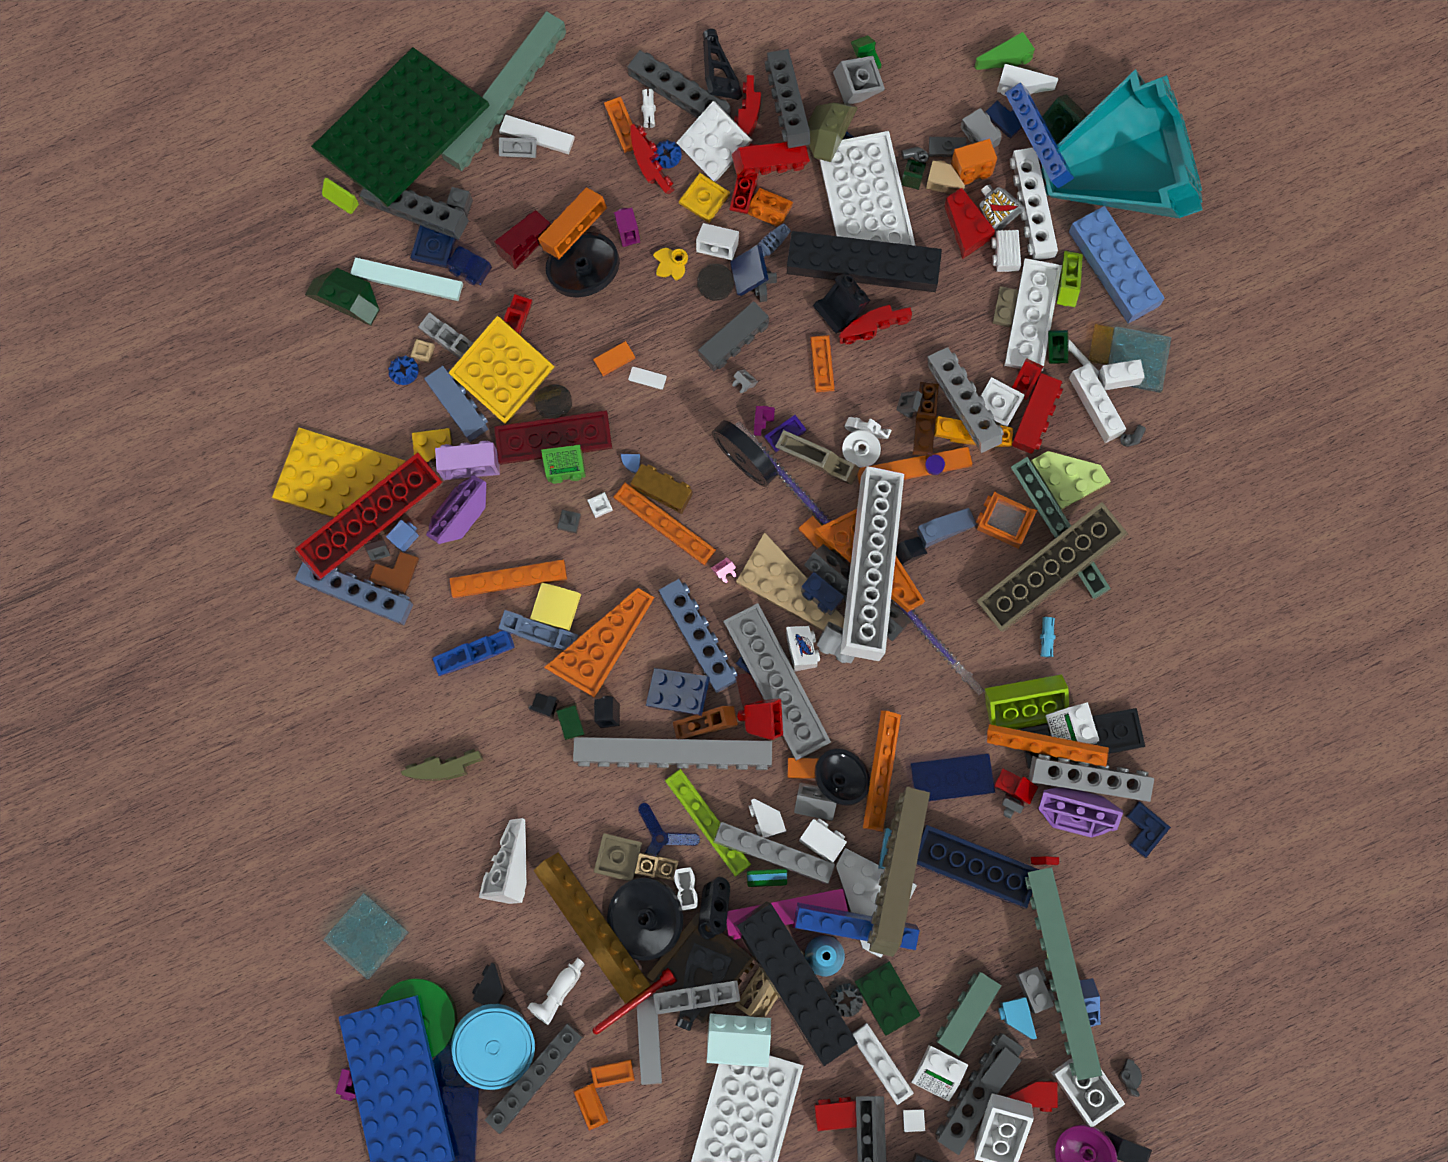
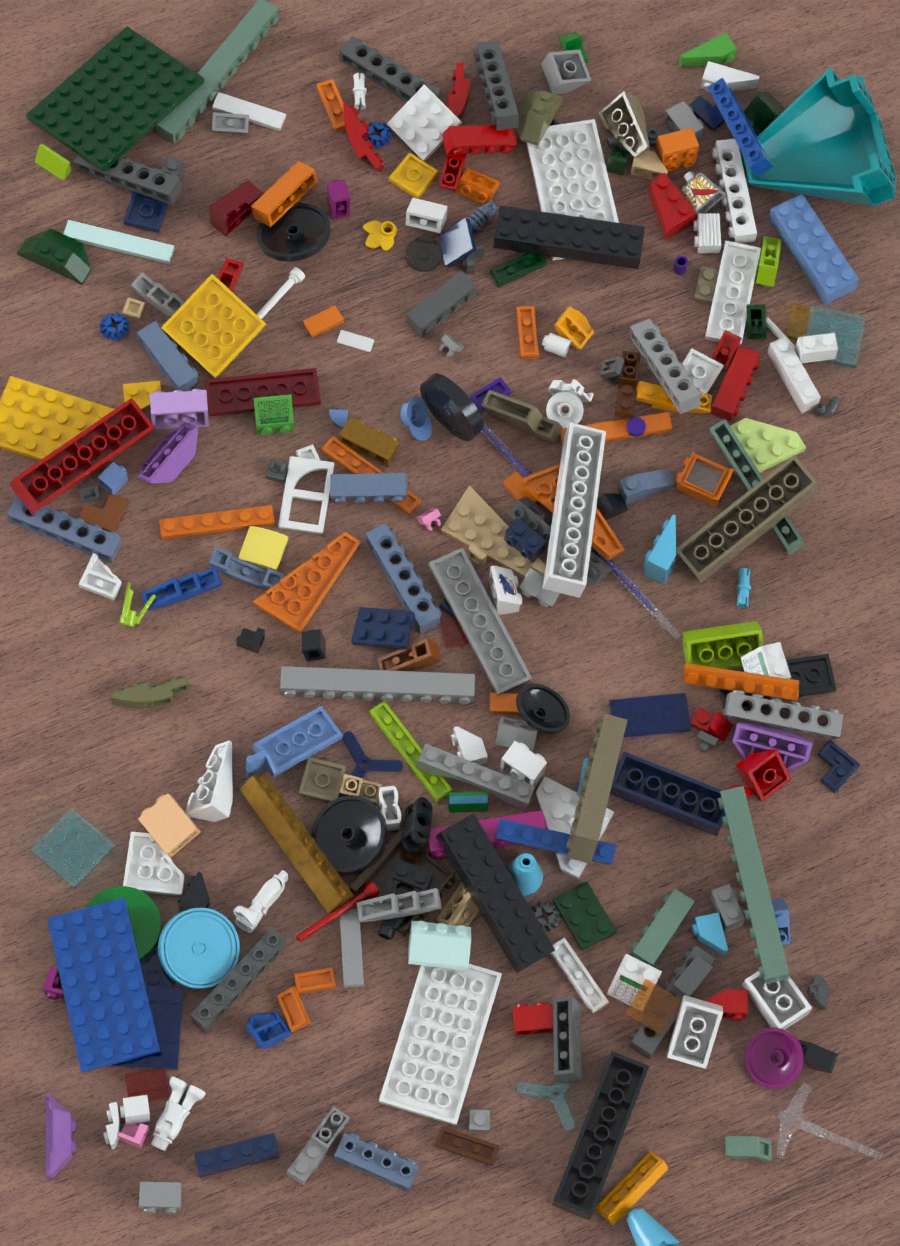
camera: 10 degrees left, 10 degrees down
(390, 644) = (100, 579): none -> white wing
(420, 684) = (129, 616): none -> lime plant
(445, 956) = (151, 868): none -> white plate
(462, 910) = (169, 824): none -> light nougat brick
(469, 266) = (181, 230): clear blue brick -> none
(553, 401) = (263, 358): clear smoke tile -> none
(563, 1129) = (267, 1029): none -> blue slope
(570, 721) = (277, 651): dark green slope -> none
(584, 312) = (295, 277): none -> white piece
(588, 521) = (296, 470): none -> white window
(588, 819) = (293, 743): none -> medium blue hinge
(661, 539) = (369, 487): none -> sand blue brick
(710, 462) = (417, 418): none -> medium blue piece
(719, 86) = (428, 72): black plate -> none
(762, 414) = (469, 377): magenta bracket -> none
(763, 718) = (466, 652): red torso -> none
(773, 609) = (477, 555): none -> tan tile
(808, 295) = (517, 268): none -> dark green tile
(842, 303) = (548, 275): black panel -> none
(852, 377) = (556, 344): none -> white brick
(866, 325) = (576, 293): red slope -> none
(870, 358) = (575, 327): none -> light orange slope
(881, 771) = (581, 706): orange plate -> none
(913, 1120) = (608, 1027): white tile -> none
(922, 133) = (627, 123): none -> dark tan wedge
(959, 1105) = (653, 1006): none -> clear orange tile
(966, 603) = (661, 558): none -> medium azure slope
(981, 282) = (678, 269): none -> dark purple hinge
(1070, 840) = (763, 773): none -> red slope

